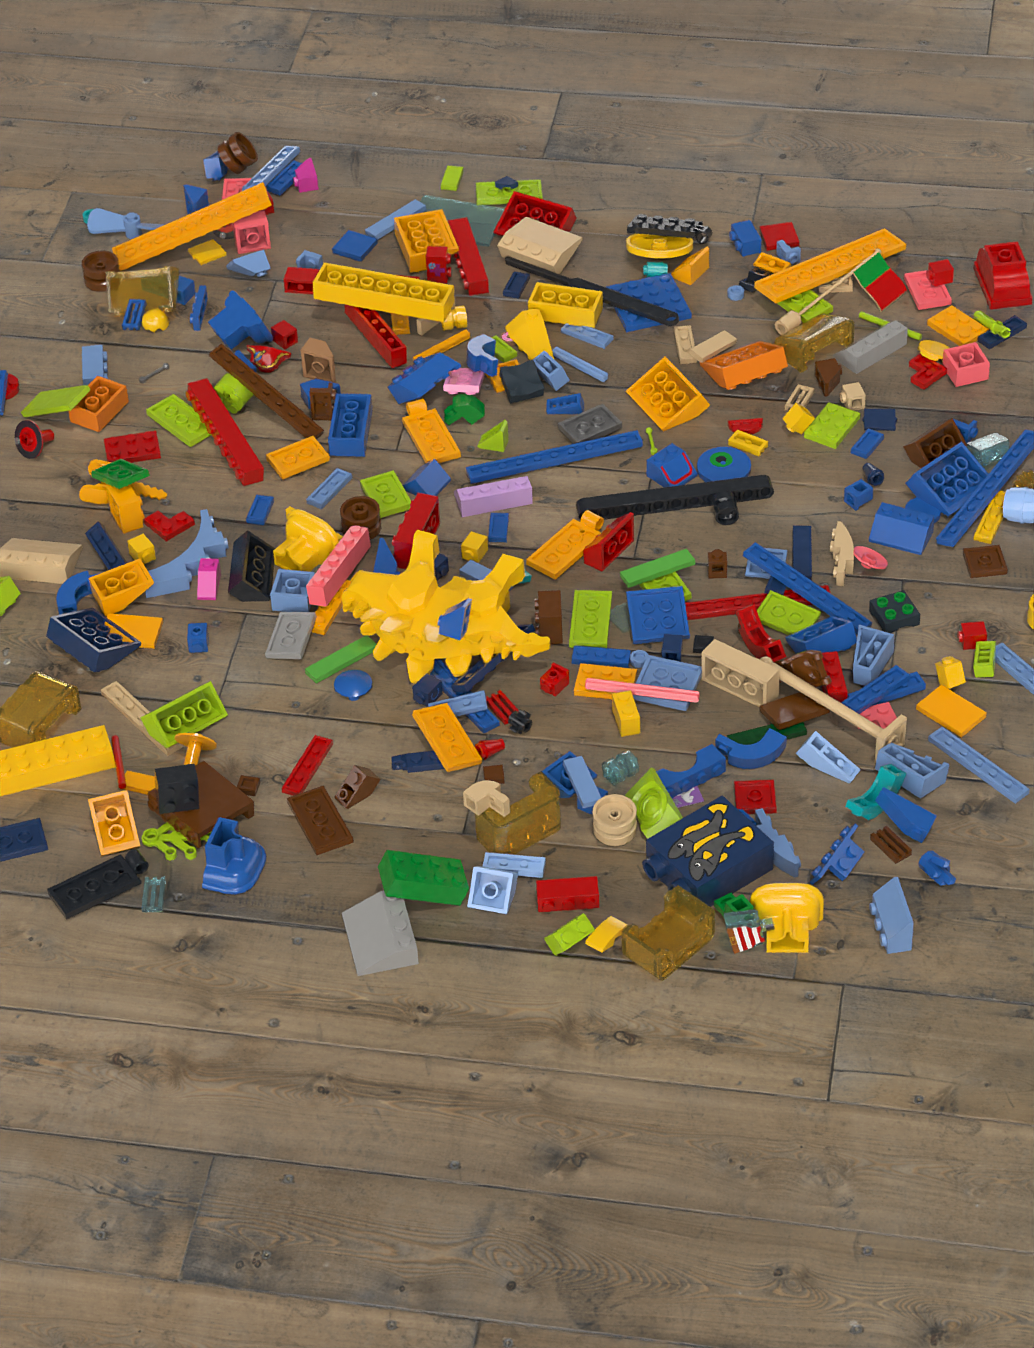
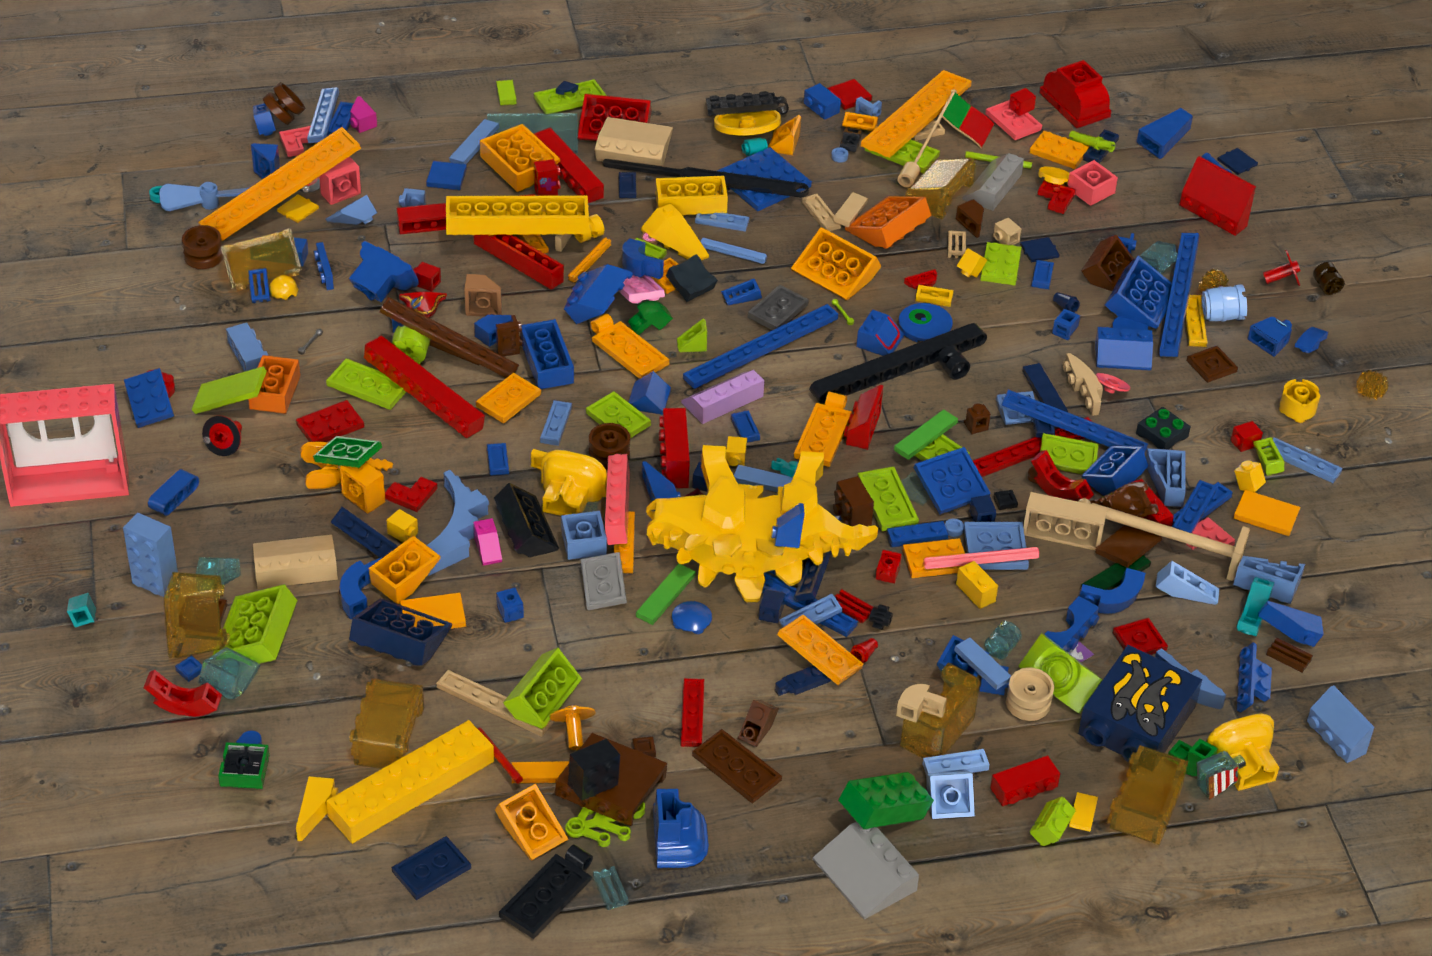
camera: 25 degrees left, 0 degrees up
(494, 773) = (882, 676): reddish brown tile -> none
(550, 370) = (715, 261): medium blue brick -> none
(937, 868) = (1345, 667): blue rock -> none
(978, 765) = (1320, 558): medium blue tile -> none

